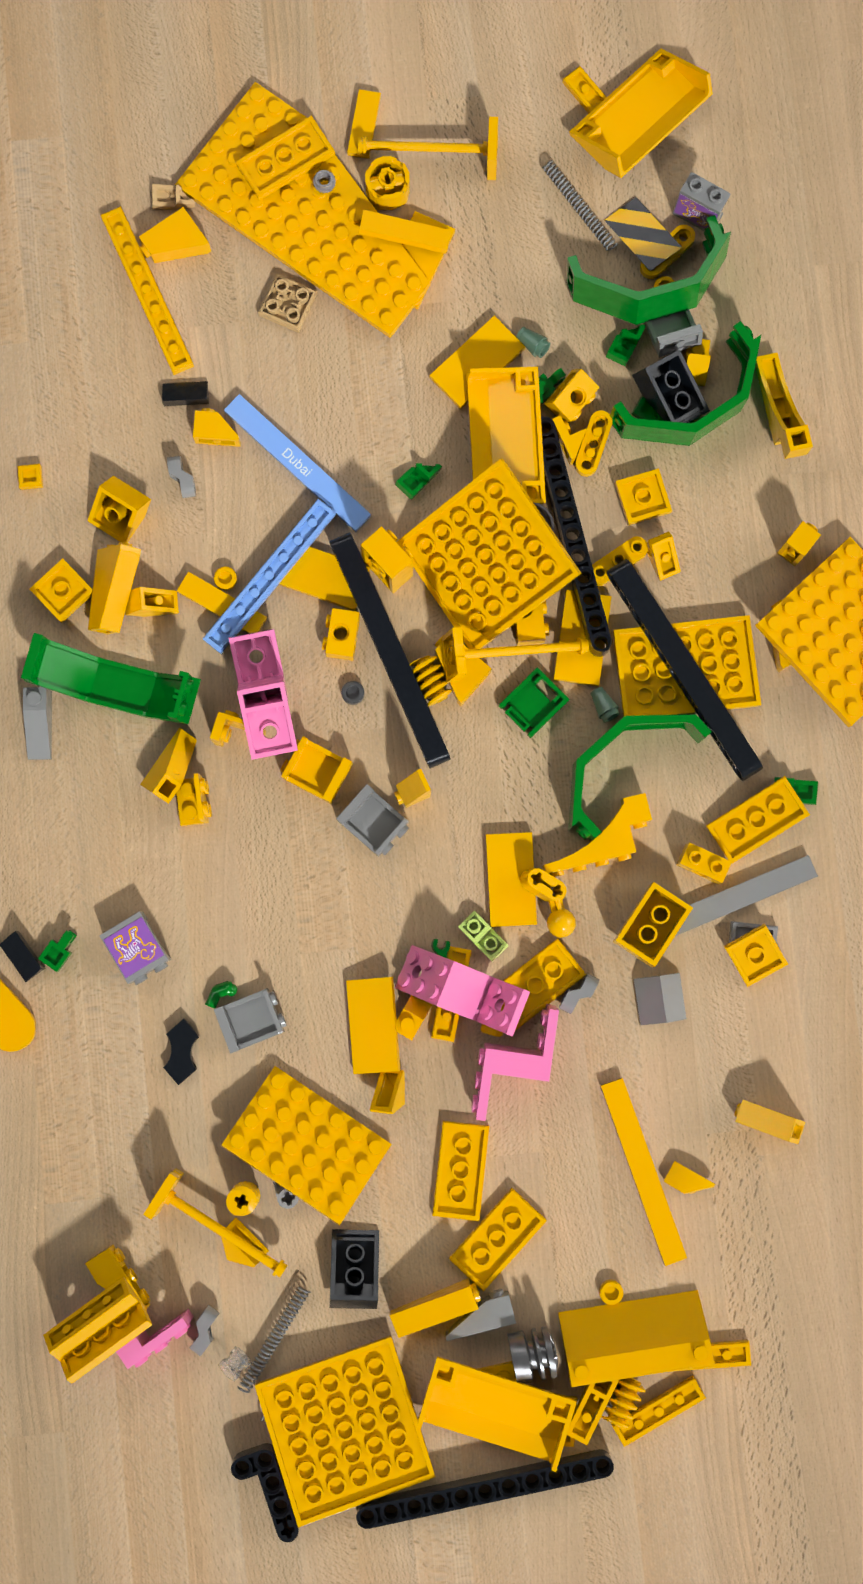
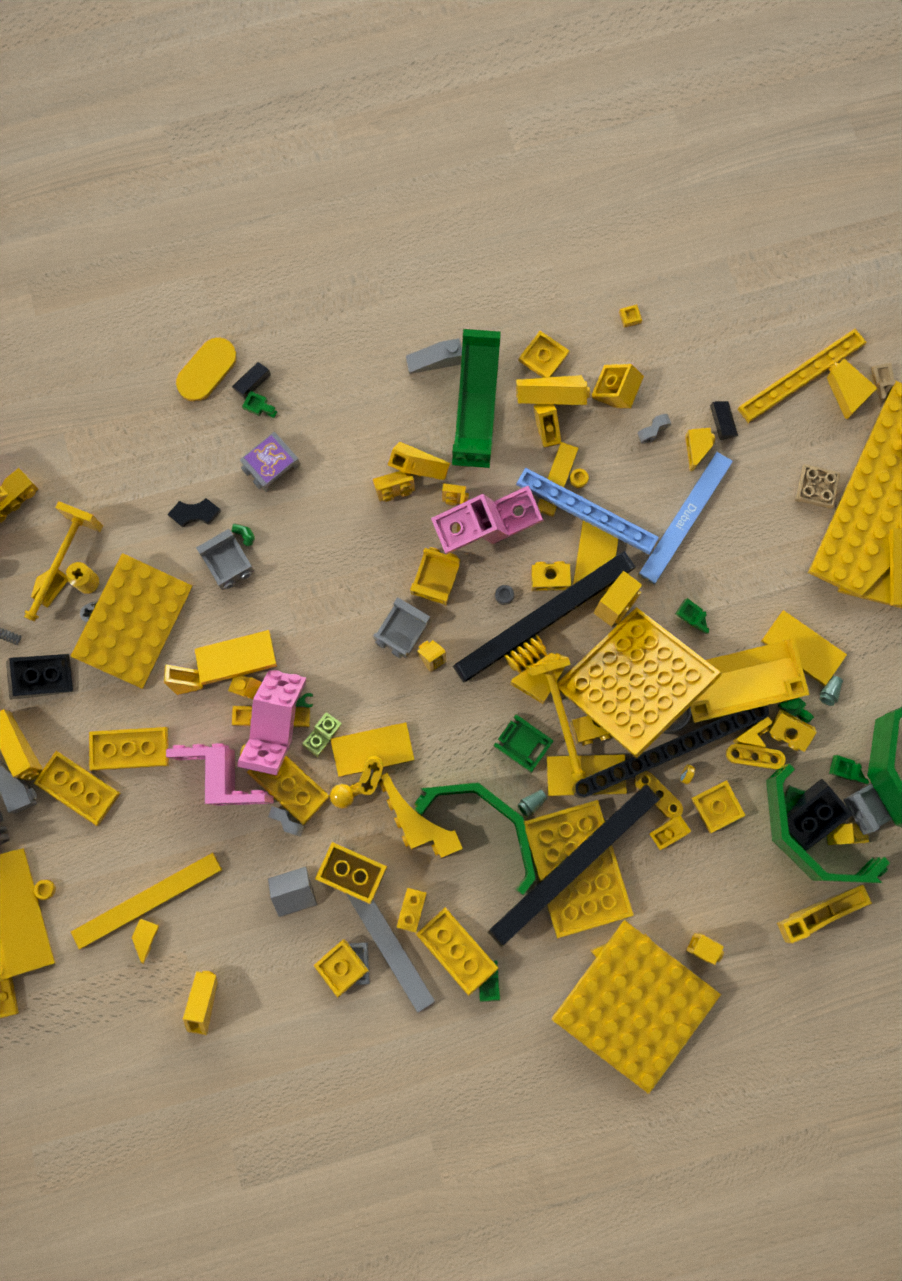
camera: 85 degrees right, 5 degrees down
(601, 523) = (687, 774): none -> yellow tile

